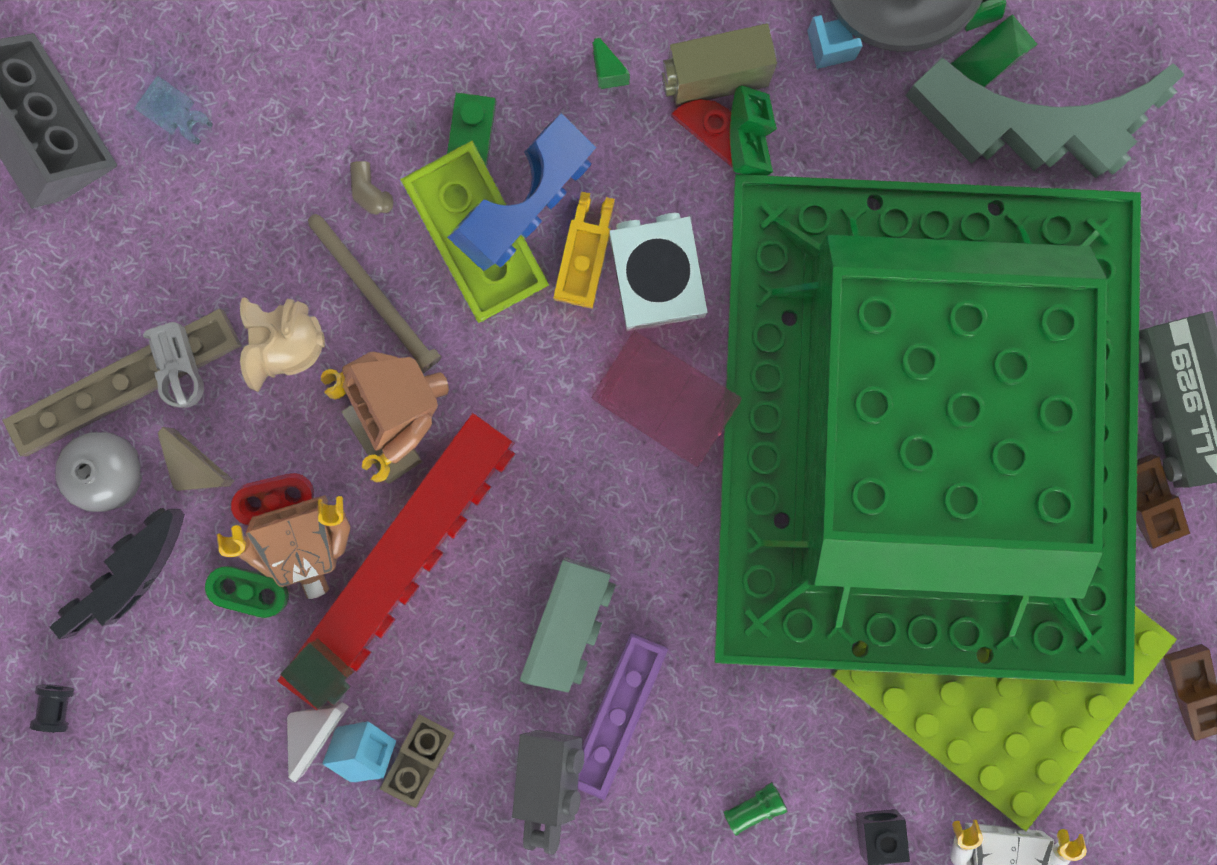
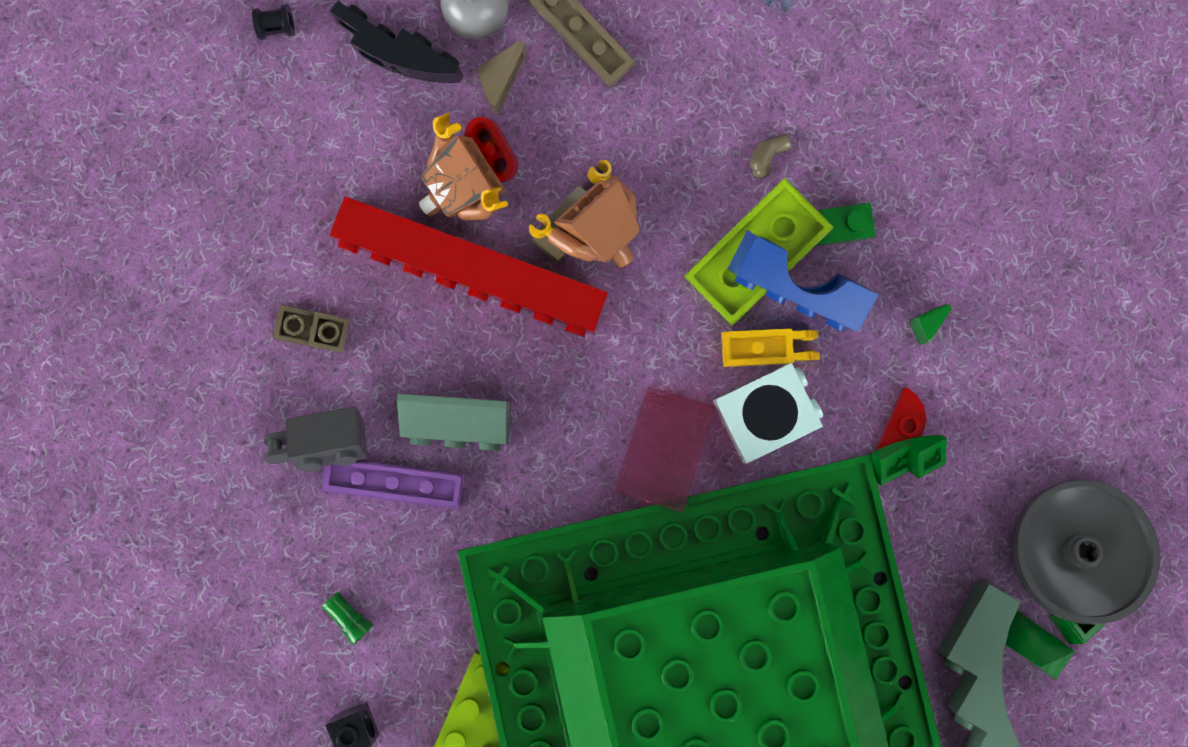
camera: 75 degrees right, 0 degrees up
(174, 355) = (584, 34): light grey piece -> none
(248, 592) = (409, 152): green plate -> none
(278, 341) = (621, 116): tan helmet -> none
(307, 735) = (309, 234): white slope -> none
(318, 674) = (357, 228): clear green brick -> none
(359, 752) = (305, 279): medium azure panel -> none
(424, 357) = (642, 240): dark tan bar -> none
(719, 64) = (958, 415): olive brick -> none
(832, 42) = (1005, 505): medium azure panel -> none

